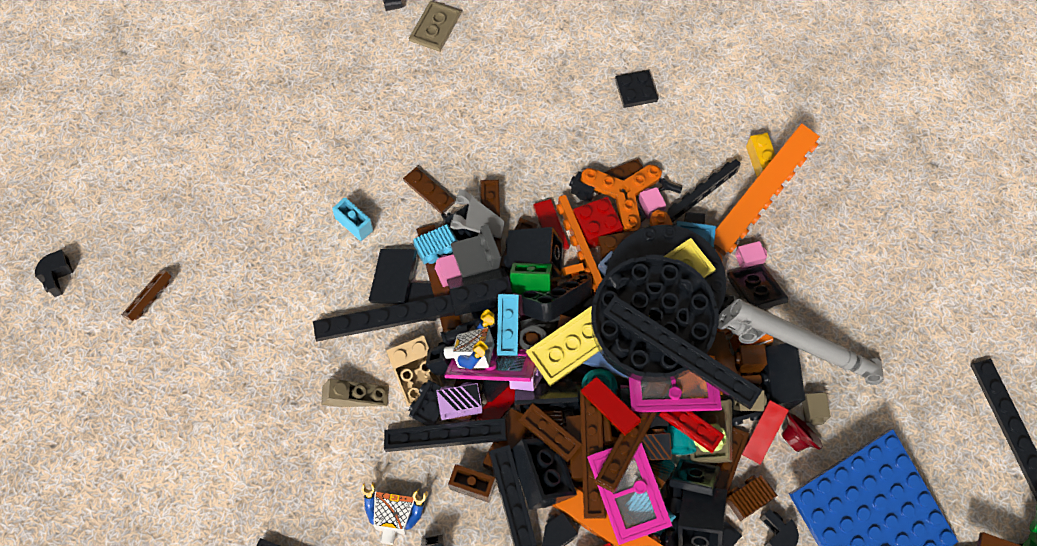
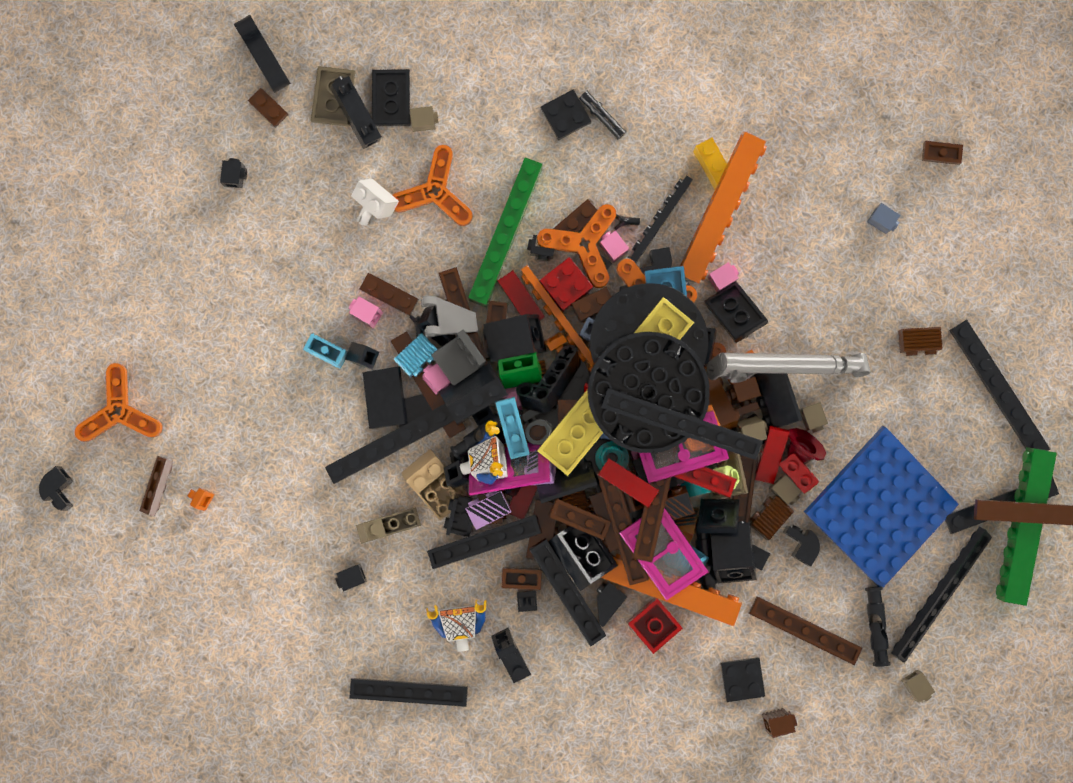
camera: 15 degrees left, 20 degrees up
(150, 229) = (117, 397): none -> orange piece
(183, 318) = (200, 498): none -> orange tile
(298, 434) = (350, 577): none -> black brick
(325, 59) = (233, 173): none -> black brick
(376, 20) = (268, 107): none -> reddish brown plate
(385, 231) = (362, 355): none -> black brick
(401, 194) = (365, 312): none -> bright pink brick
(441, 108) = (374, 200): none -> white brick
(450, 38) = (355, 111): none -> black brick
(470, 512) = (527, 601): none -> black tile
(484, 39) = (391, 97): none -> black tile
(489, 118) = (445, 199): none -> orange piece
(508, 59) = (423, 118): none -> dark tan brick
(552, 166) = (505, 232): none -> green brick
(666, 90) = (587, 99): none -> black pin
(773, 472) = (785, 490): none -> dark tan brick
(791, 457) = (798, 472): none -> red bracket
(920, 245) = (884, 218): none -> sand blue brick
(939, 365) = (920, 340): none -> reddish brown brick
(985, 204) = (942, 152): none -> reddish brown plate

